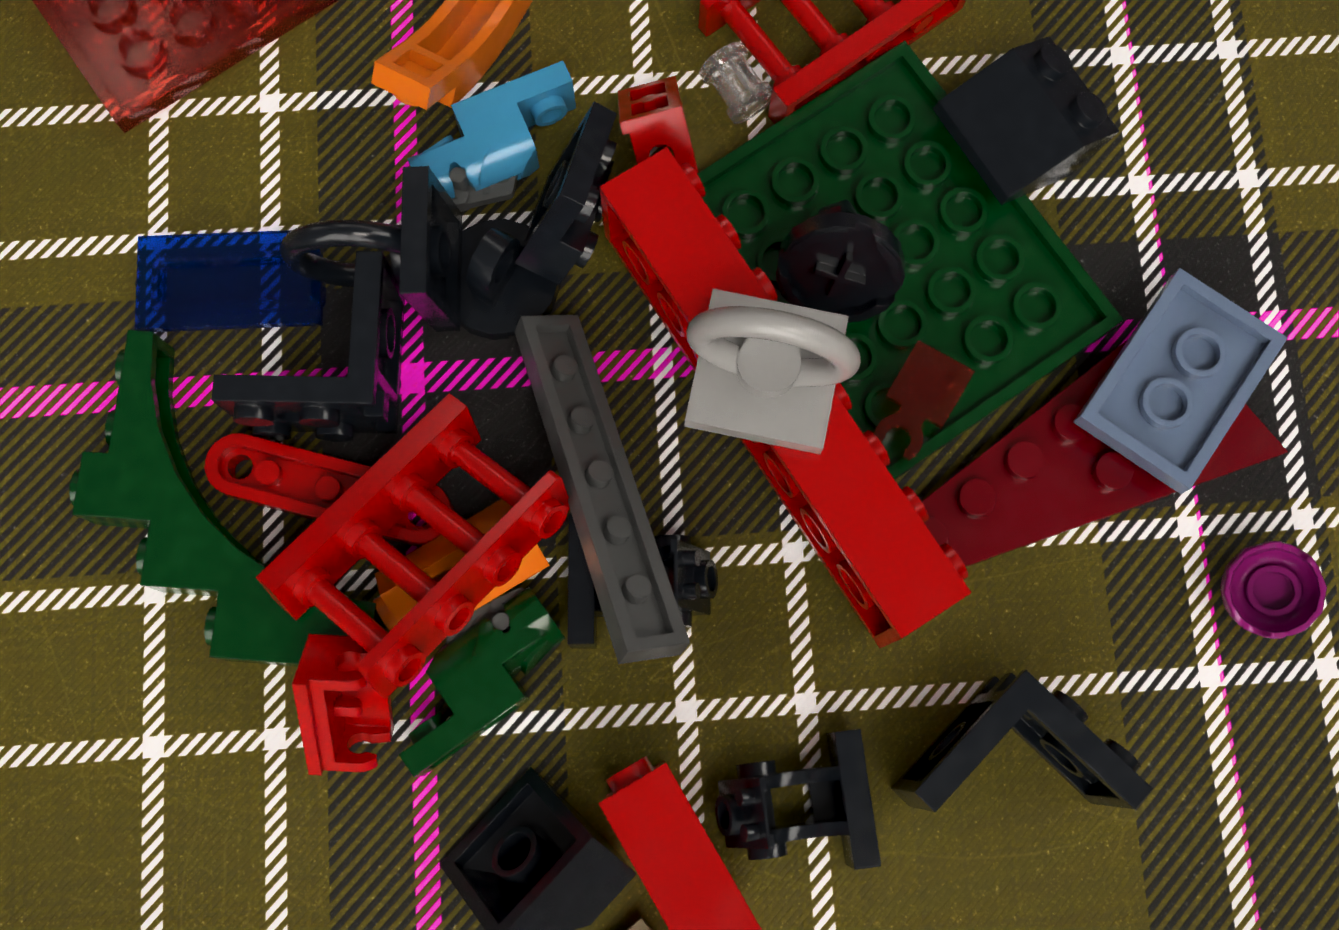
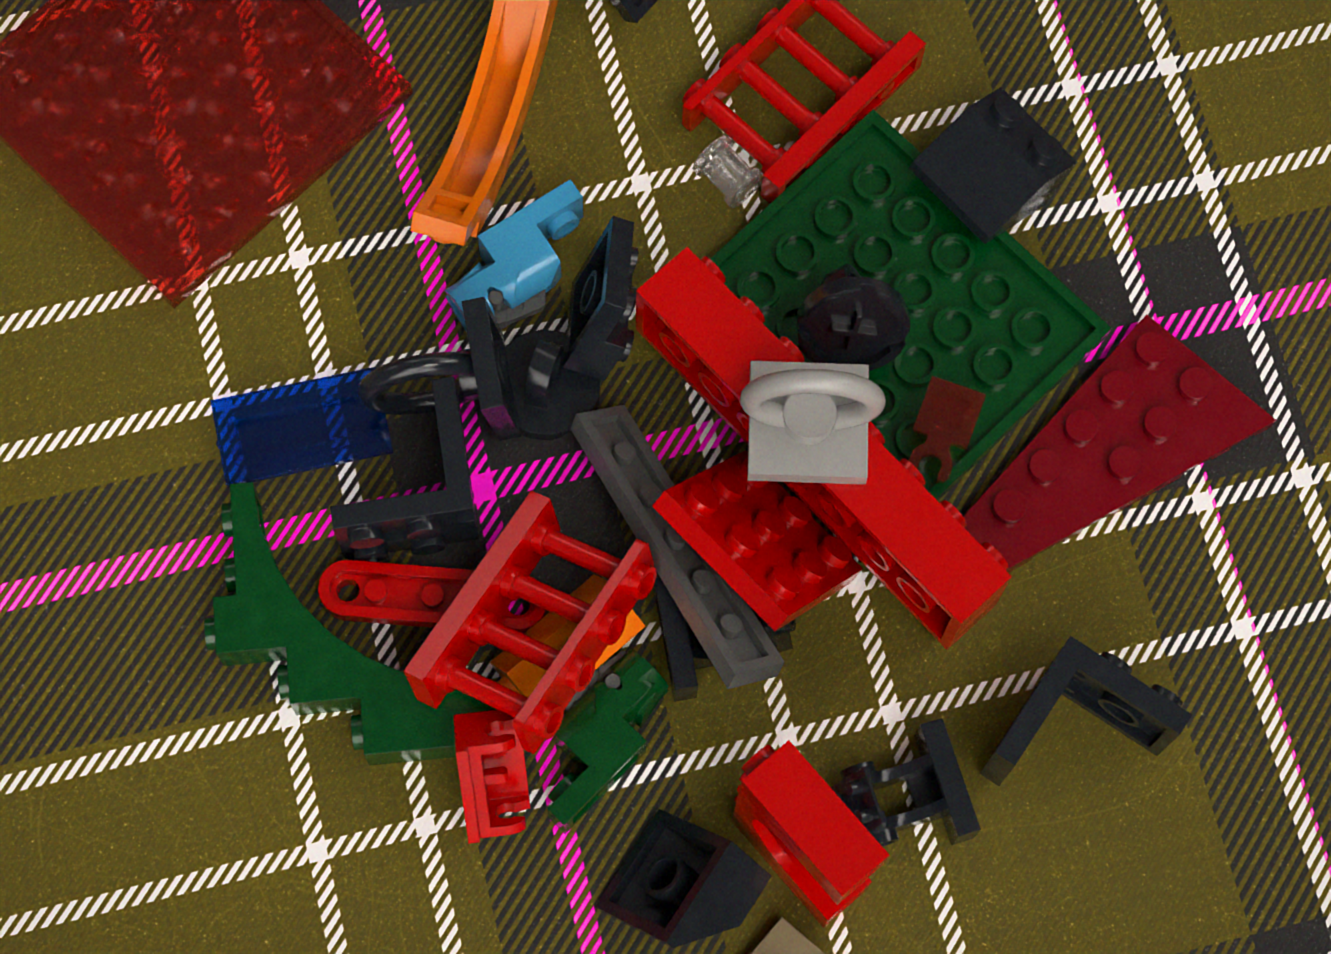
camera: 10 degrees left, 5 degrees down
(656, 118) = (666, 219): red hinge -> none
(687, 495) = (758, 540): none -> red plate
(1180, 381) = (1167, 373): sand blue plate -> none
(1273, 589) = (1279, 540): magenta hair -> none

